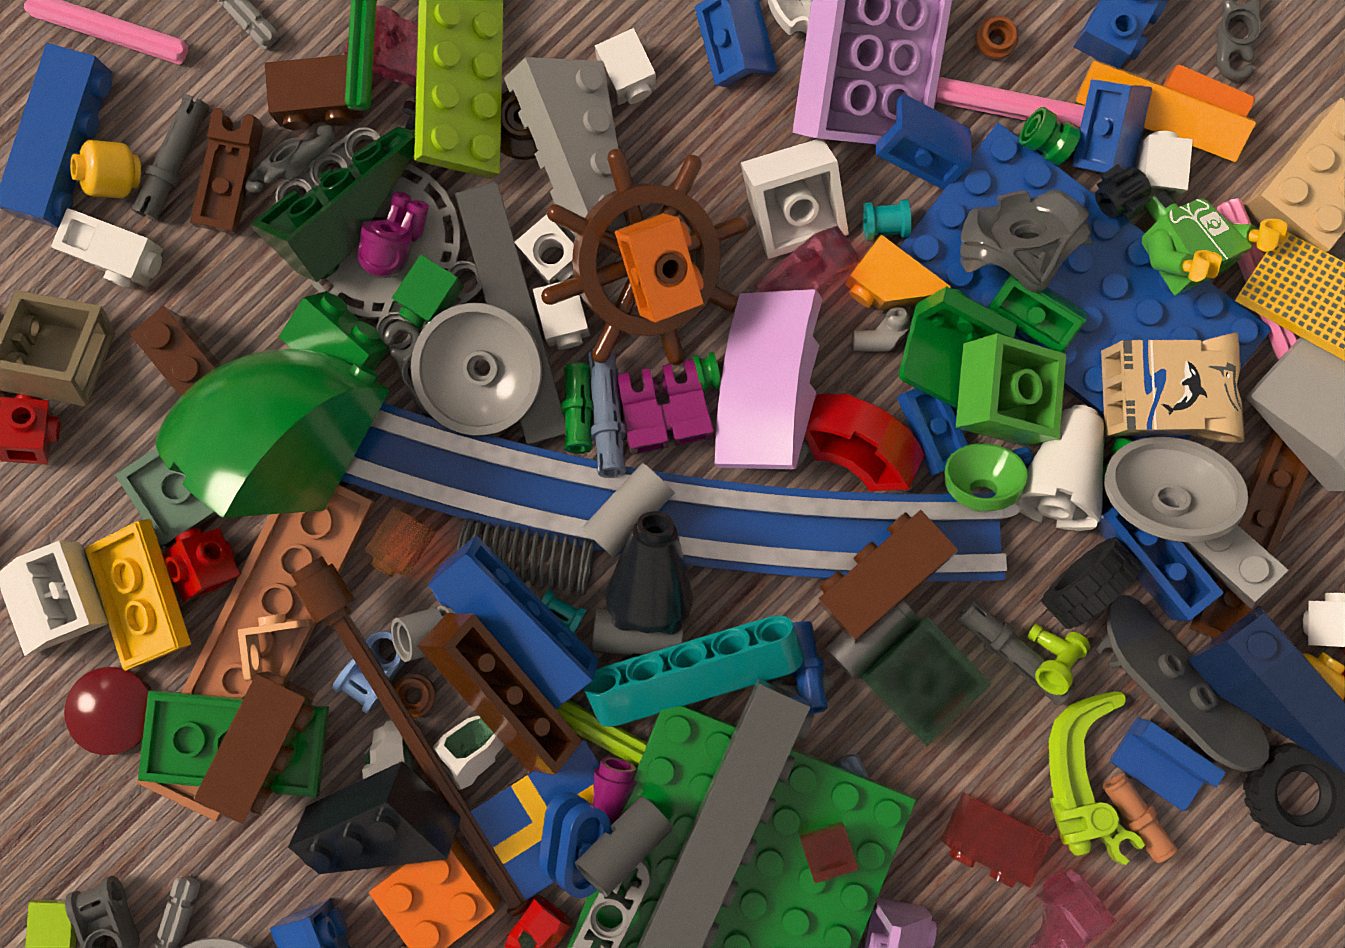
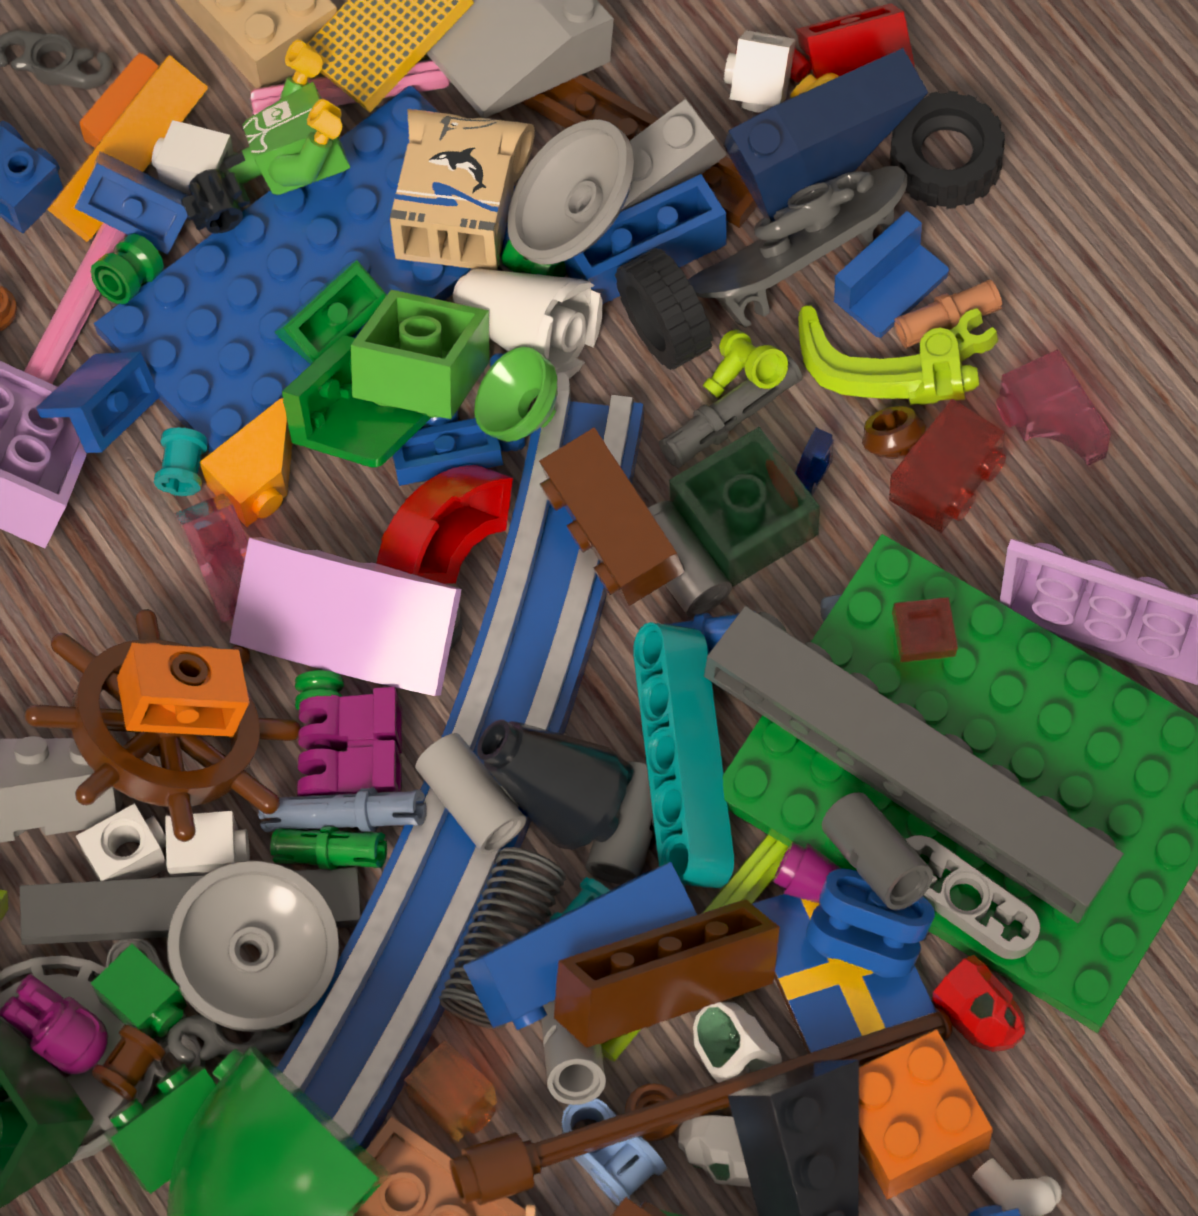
camera: 75 degrees left, 20 degrees down
(372, 296) = (128, 1062): none -> reddish brown bush
(794, 195) = (125, 556): white slope -> none
(885, 336) = (321, 488): light grey arm -> none
(978, 728) = (815, 459): none -> clear blue tile
(1019, 789) = (892, 432): none -> reddish brown hat
(1025, 235) = (242, 302): dark grey piece -> none
(1201, 685) = (814, 205): none -> dark grey piece

